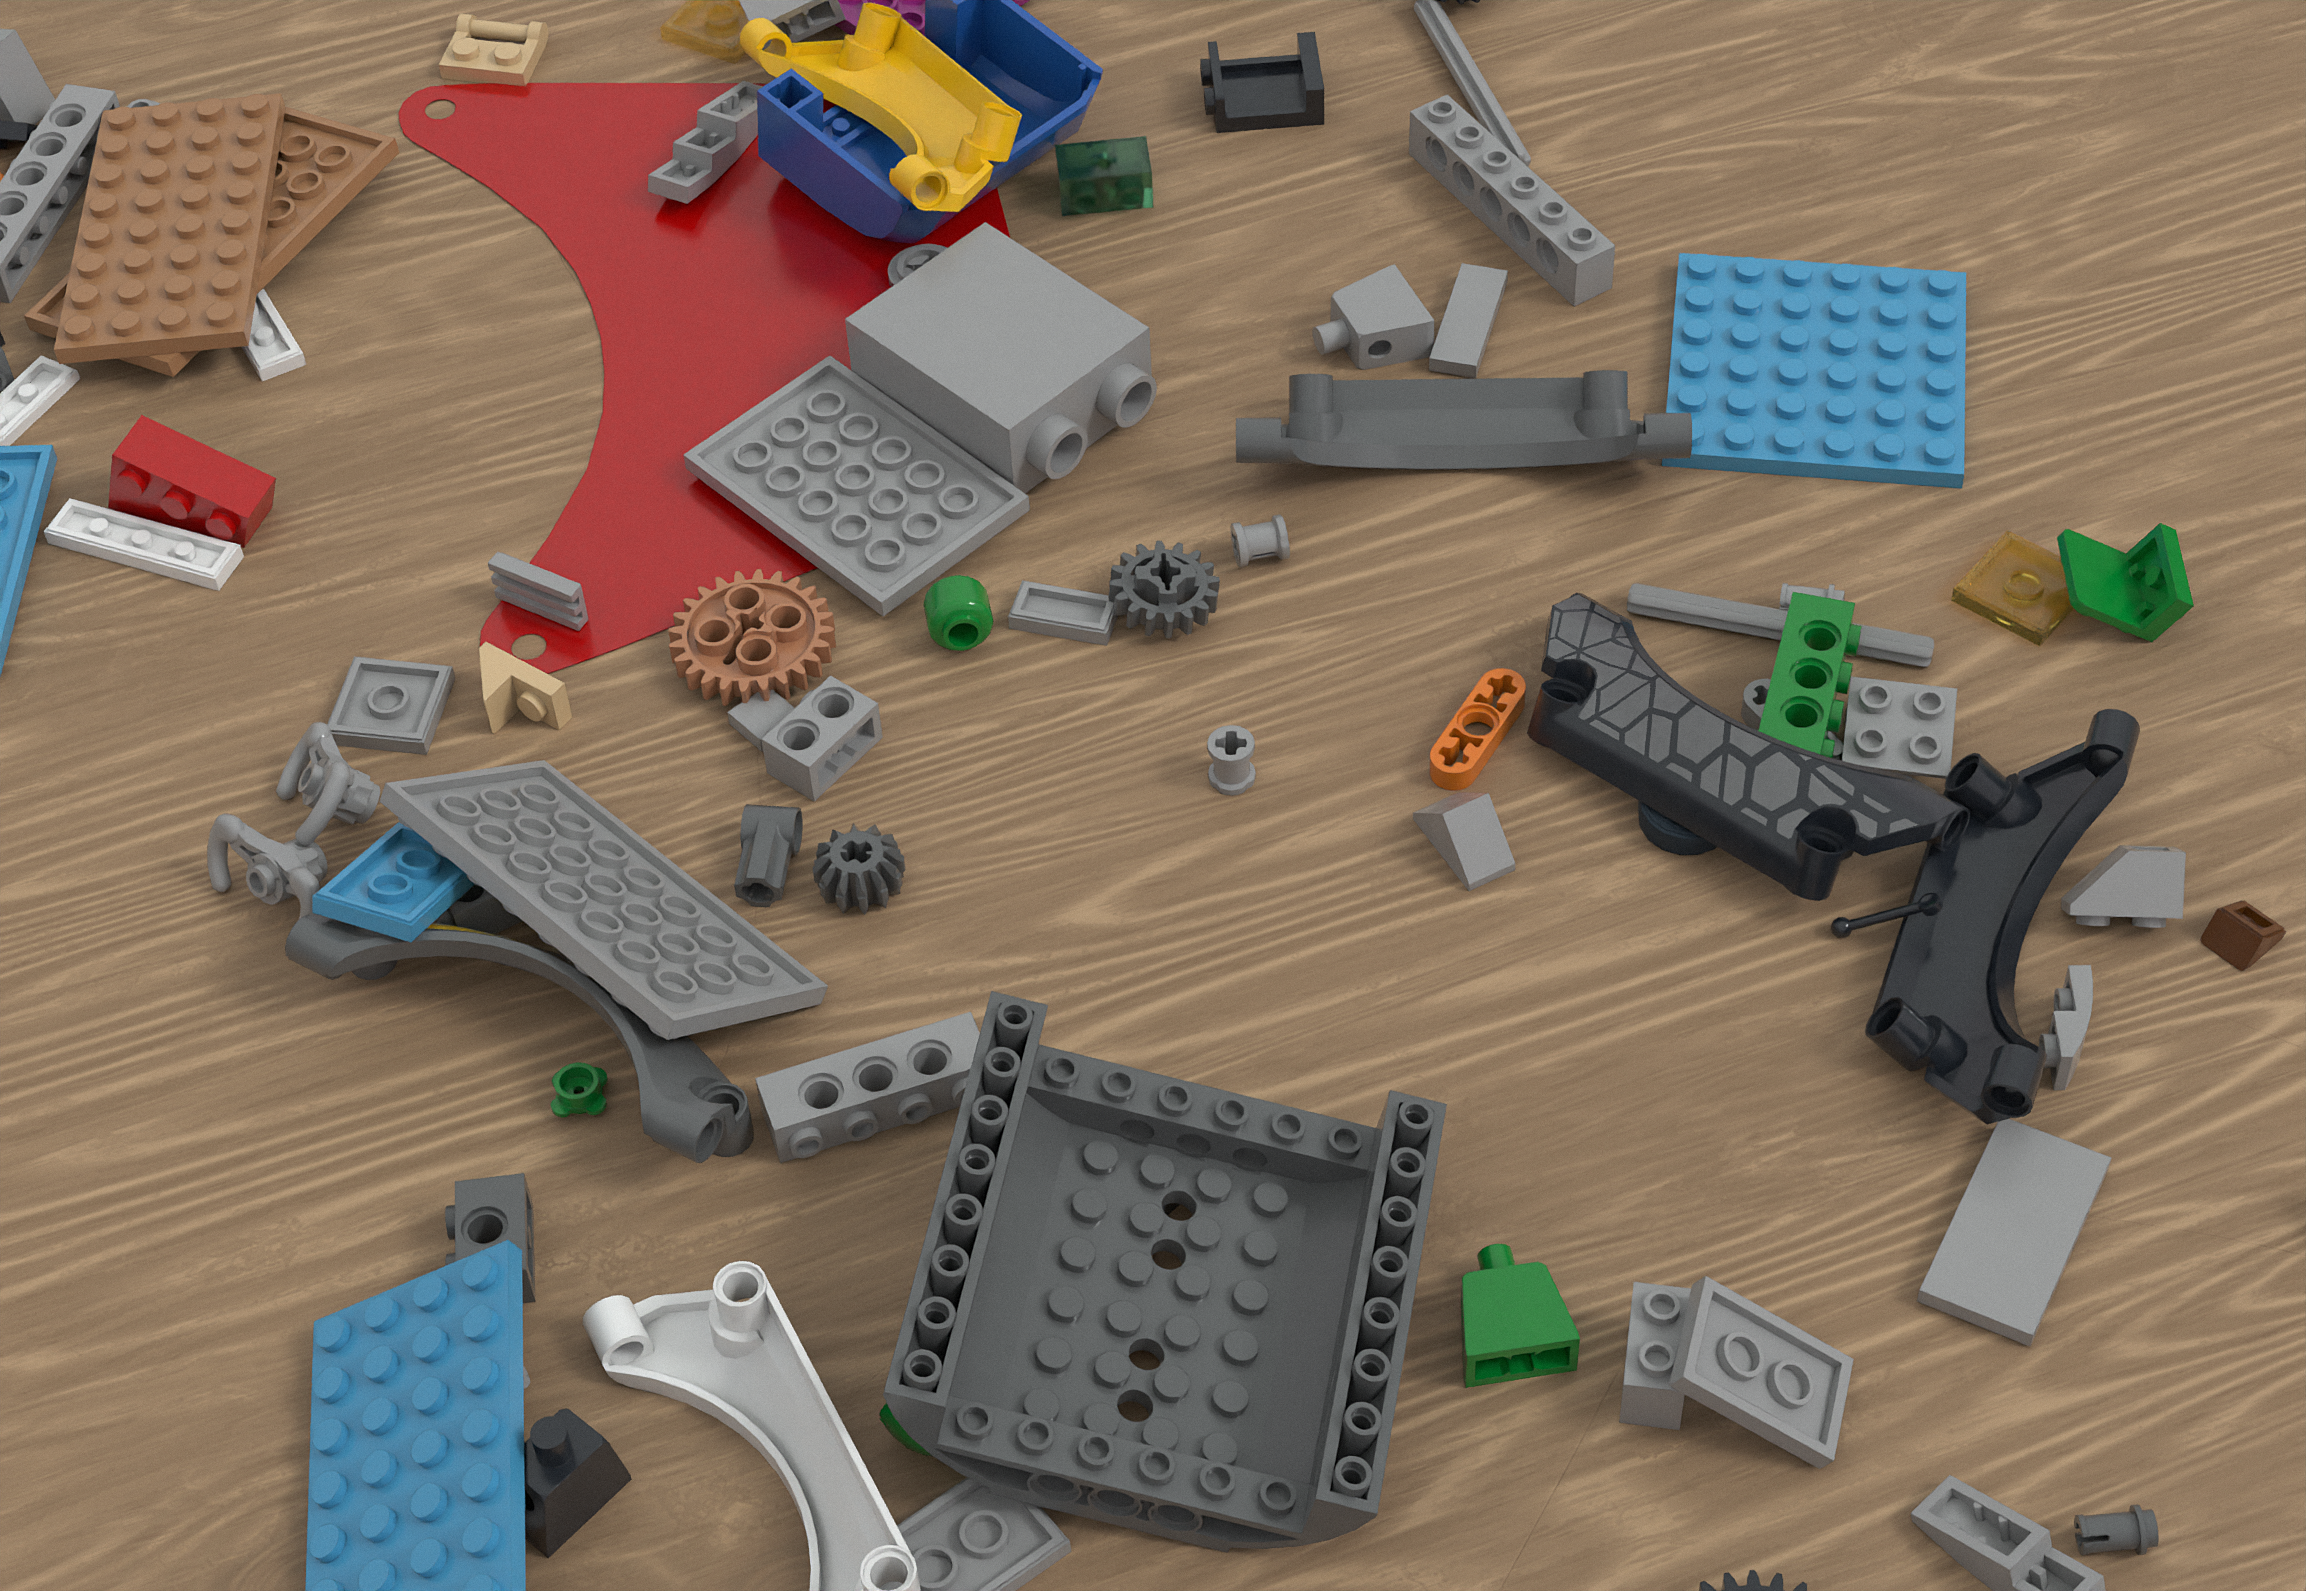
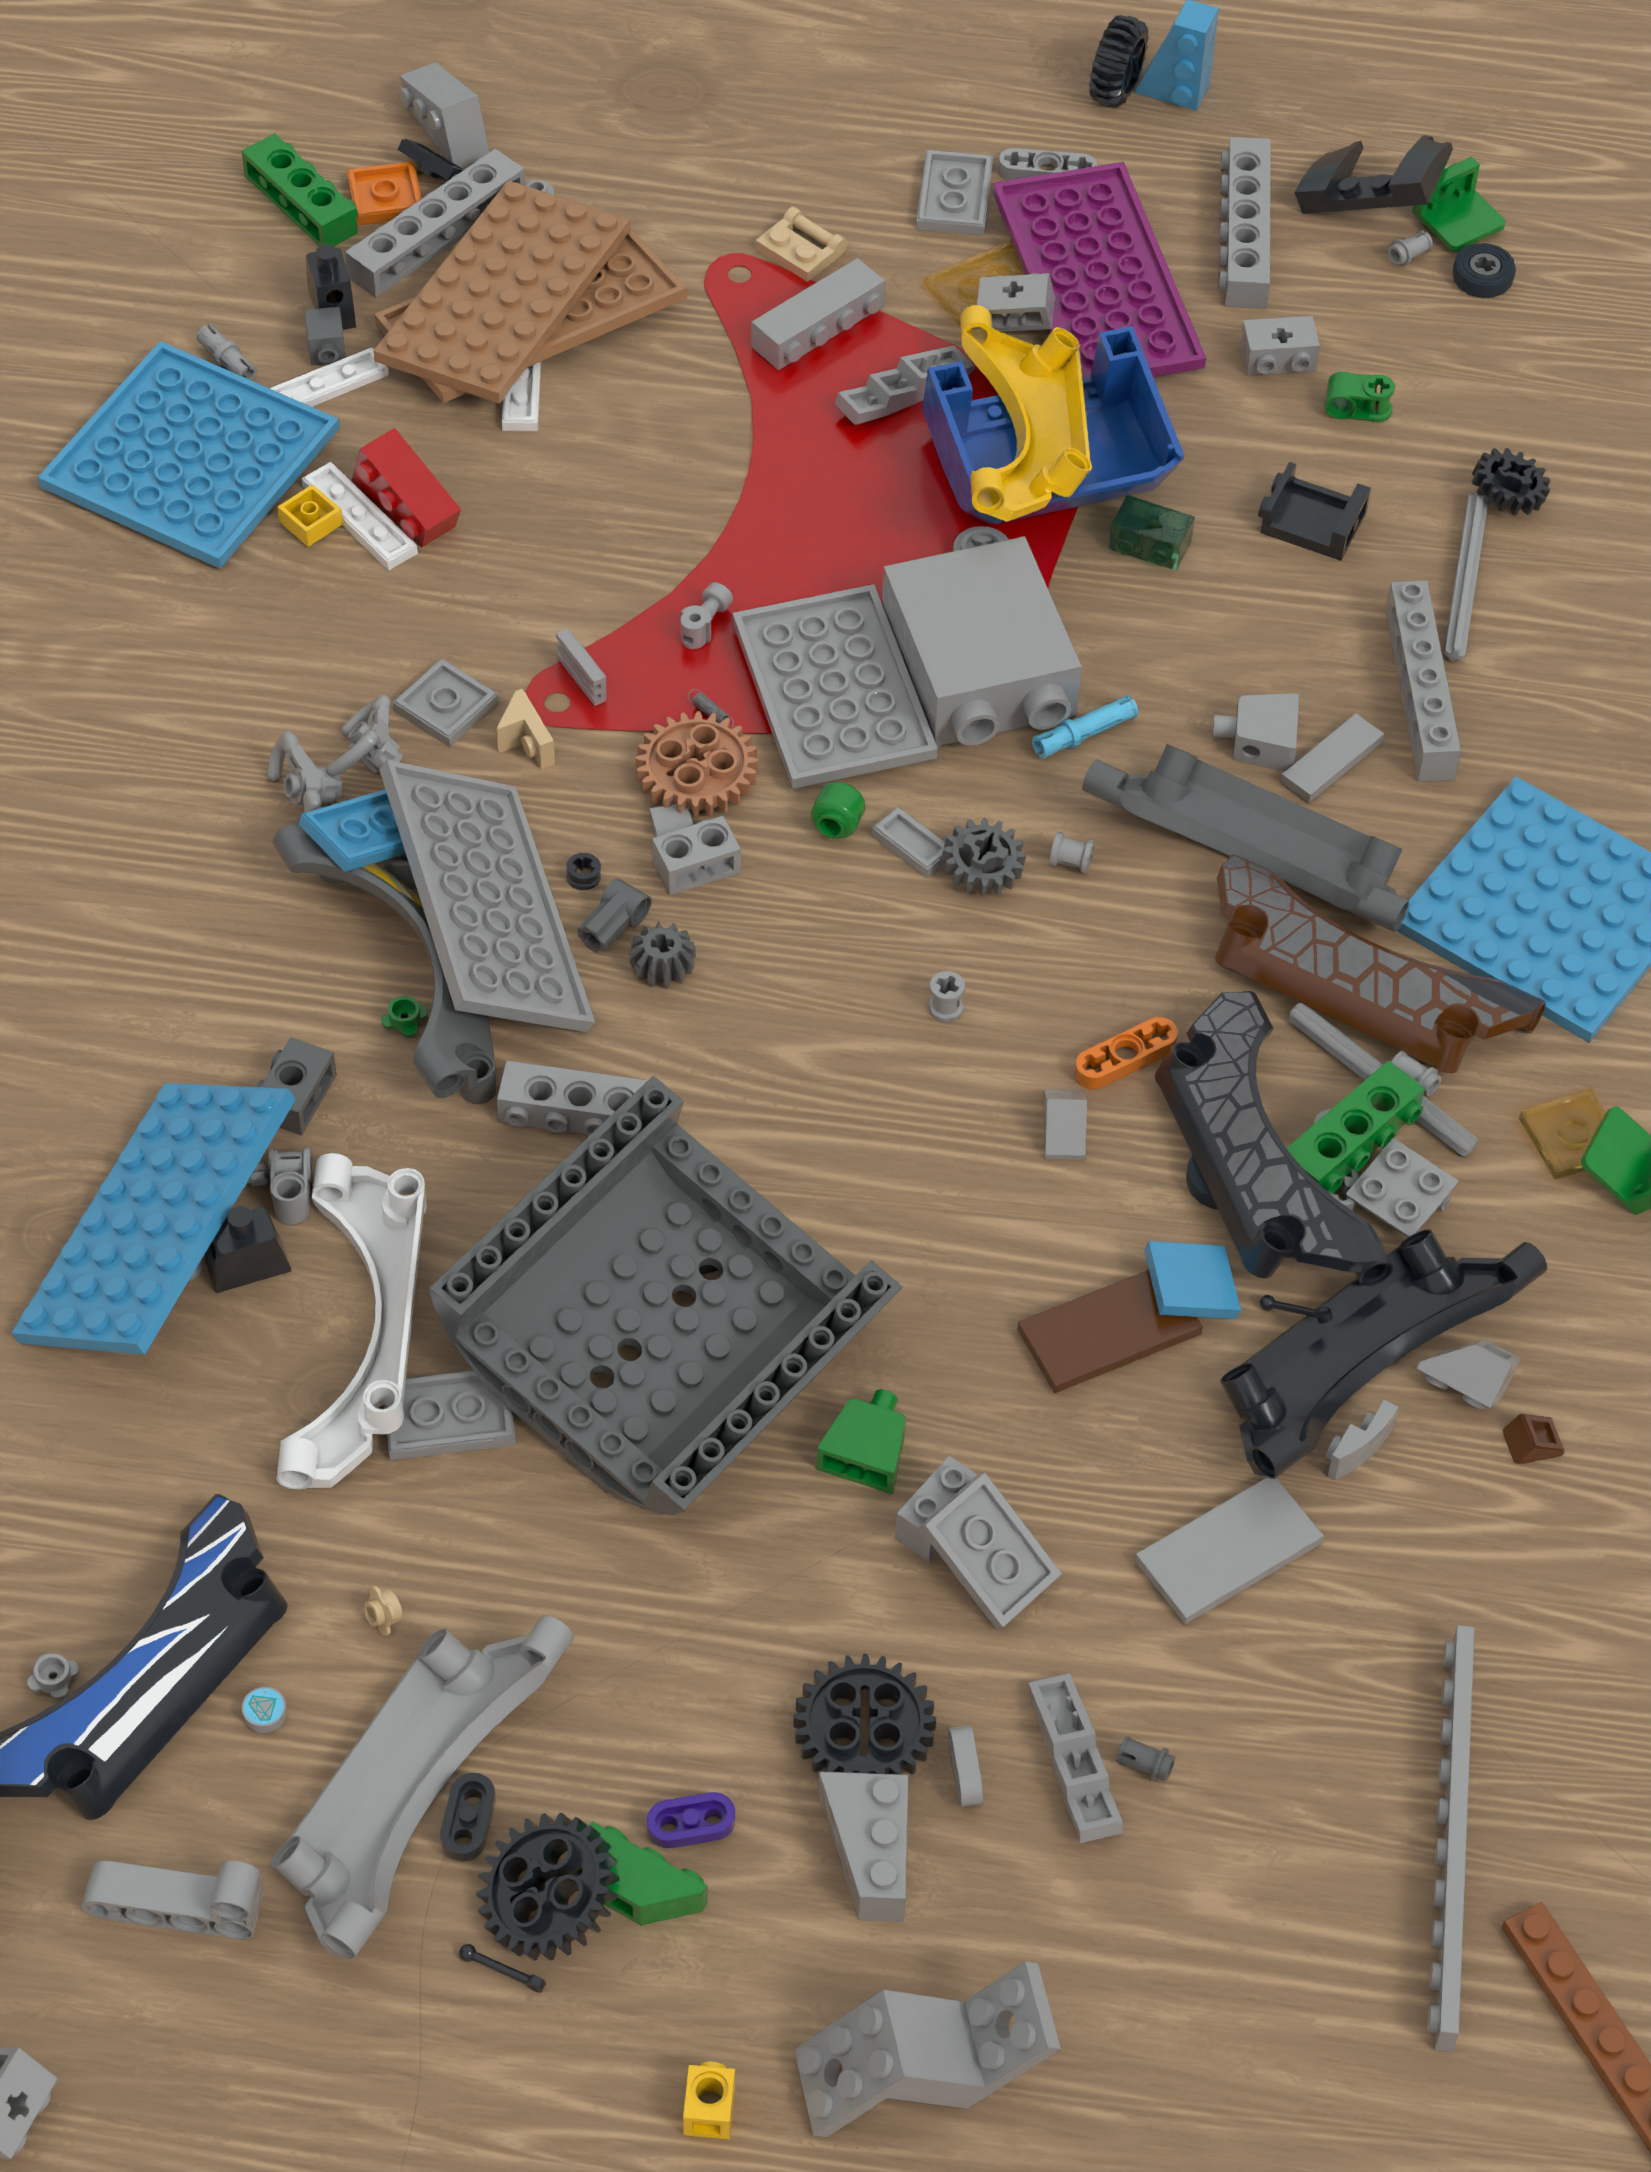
camera: 25 degrees right, 5 degrees up
(82, 567) = (310, 515): none -> yellow piece
(562, 1358) = (290, 1184): none -> light grey piece
(565, 108) = (817, 314): none -> light grey brick
(646, 480) = (697, 619): none -> light grey leg
(692, 833) = (583, 881): none -> black bush
(711, 569) = (708, 707): none -> light grey piece
(1166, 414) = (1072, 732): none -> medium azure pin
(1674, 528) = (1356, 981): none -> reddish brown panel
(1687, 1045) = (1102, 1332): none -> reddish brown tile
(1746, 941) = (1192, 1280): none -> dark azure tile

